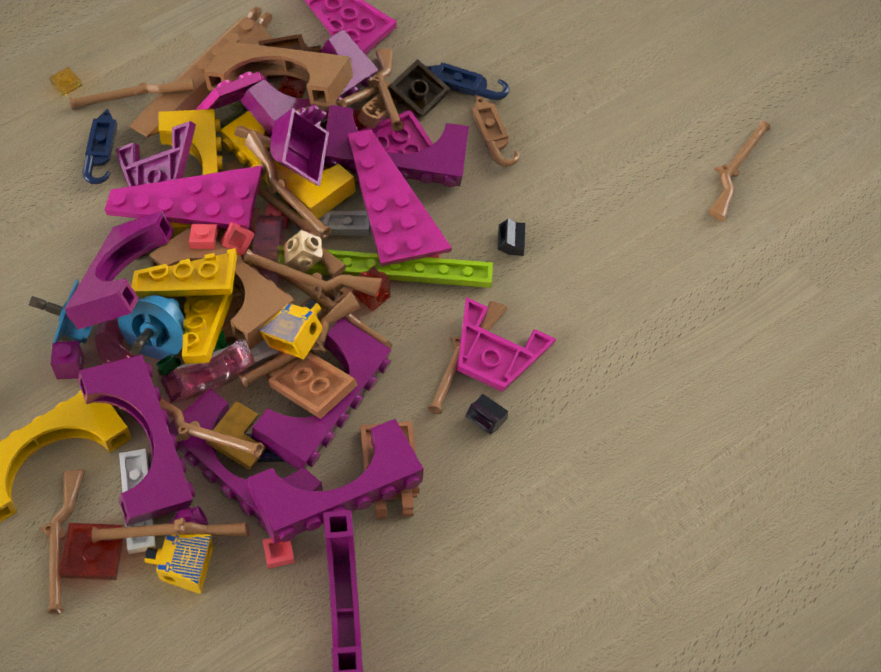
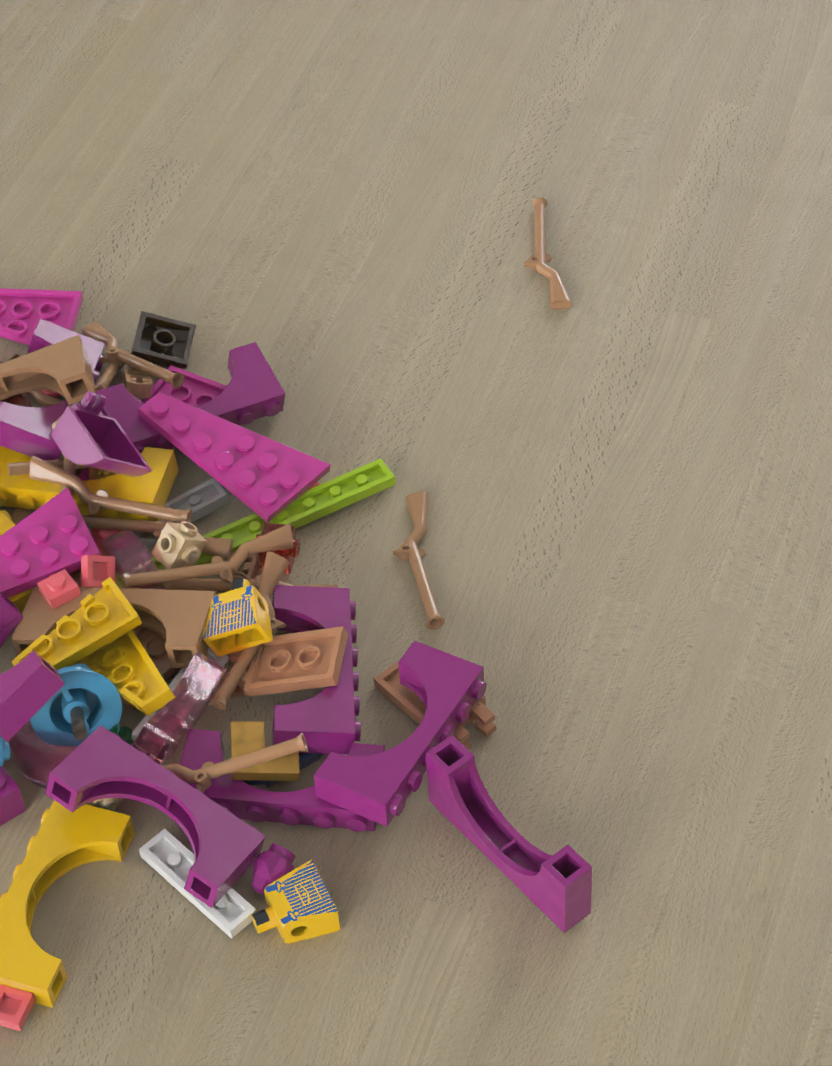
camera: 30 degrees left, 10 degrees down
(71, 485) = (109, 914): medium nougat piece -> none
(88, 559) = (190, 958): clear red plate -> none
(178, 527) = (275, 868): medium nougat piece -> none
(278, 554) = (390, 840): coral plate -> none
(467, 81) = (210, 309): dark blue plate -> none
(487, 414) = (492, 595): black piece -> none
(491, 356) = (449, 543): dark pink wing -> none
(492, 131) = (273, 342): medium nougat plate -> none
(511, 237) = (379, 427): black piece -> none

